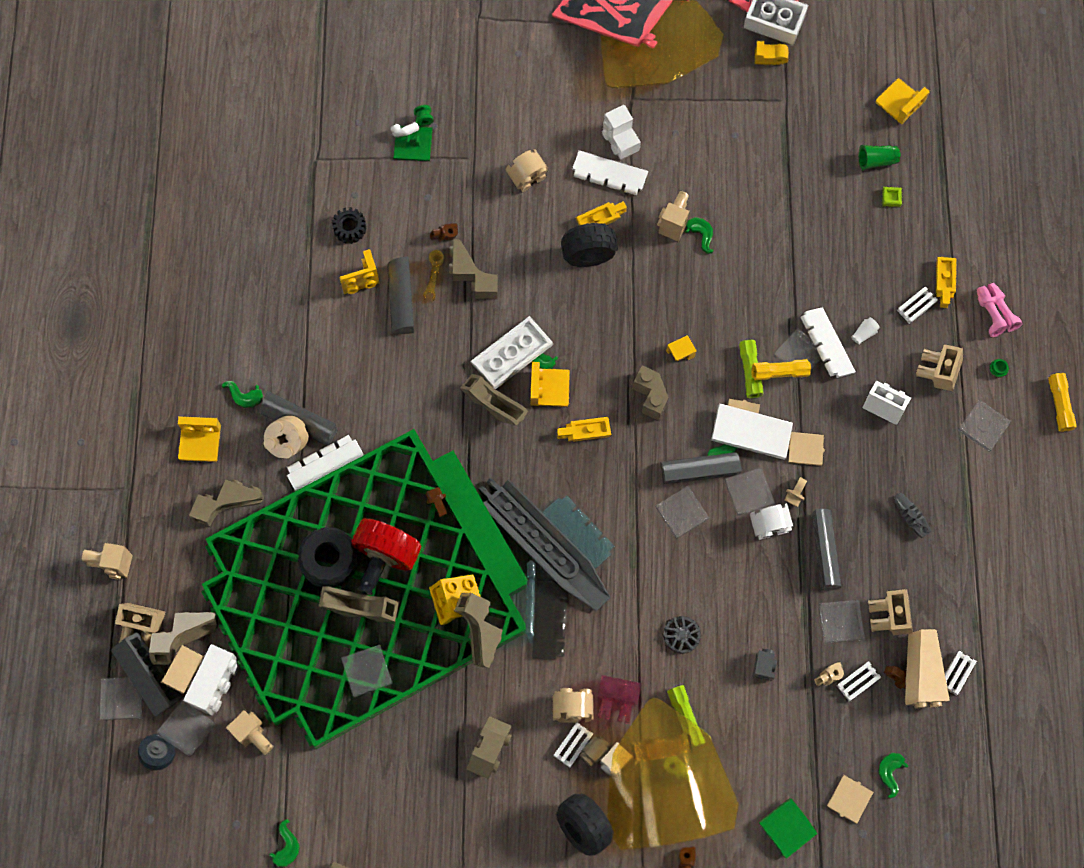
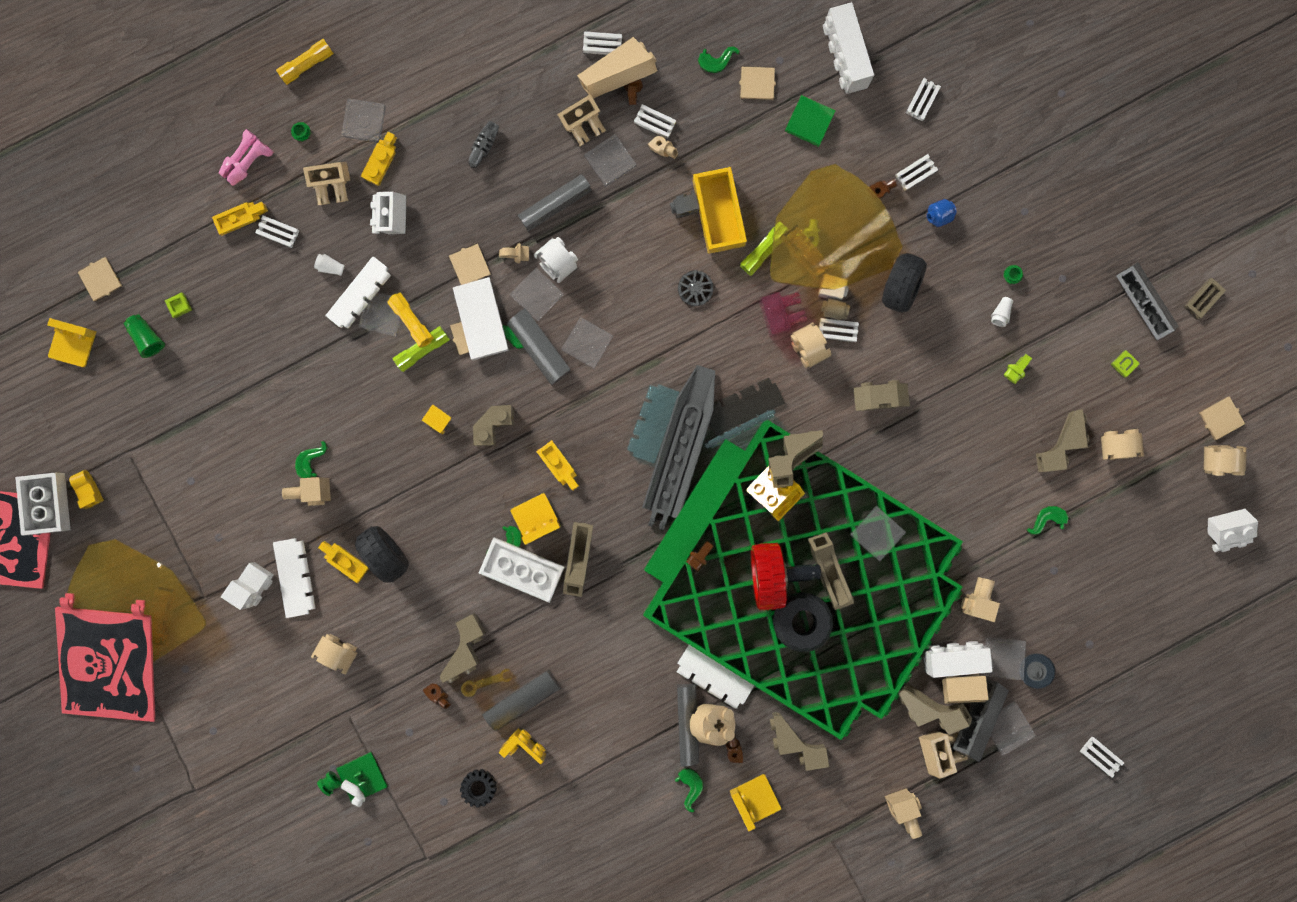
camera: 115 degrees left, 15 degrees up
(25, 776) = (1114, 767): none -> white tile
(256, 447) = (734, 747): none -> reddish brown piece
(743, 691) = (719, 210): none -> yellow piece
(940, 421) = (380, 160): none -> yellow hinge
(946, 148) = (100, 279): none -> tan piece

